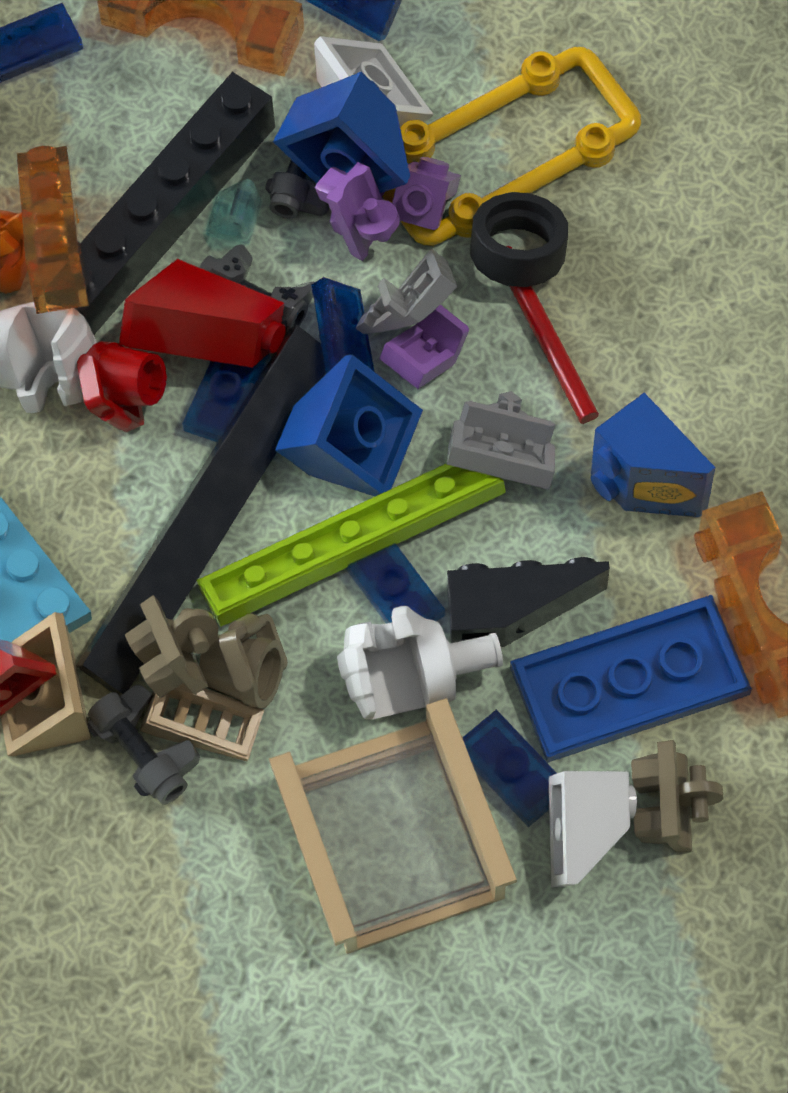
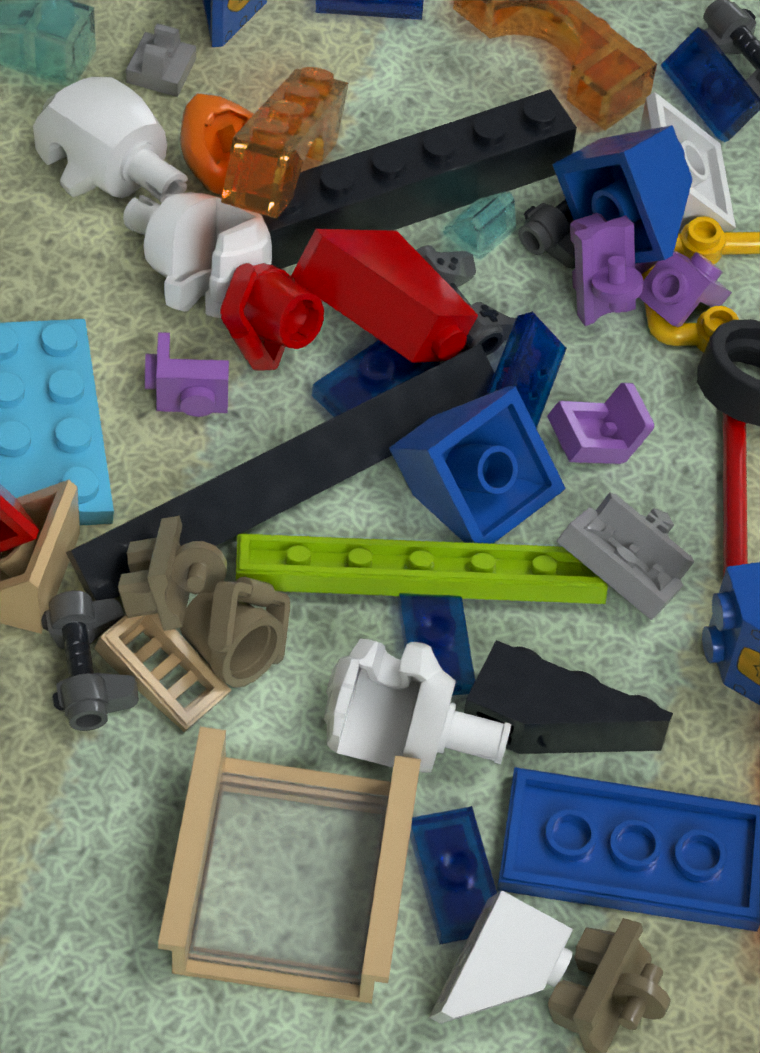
camera: 20 degrees right, 10 degrees down
(88, 476) = (186, 384): none -> medium lavender bracket
(414, 300) = (590, 372): light grey slope -> none

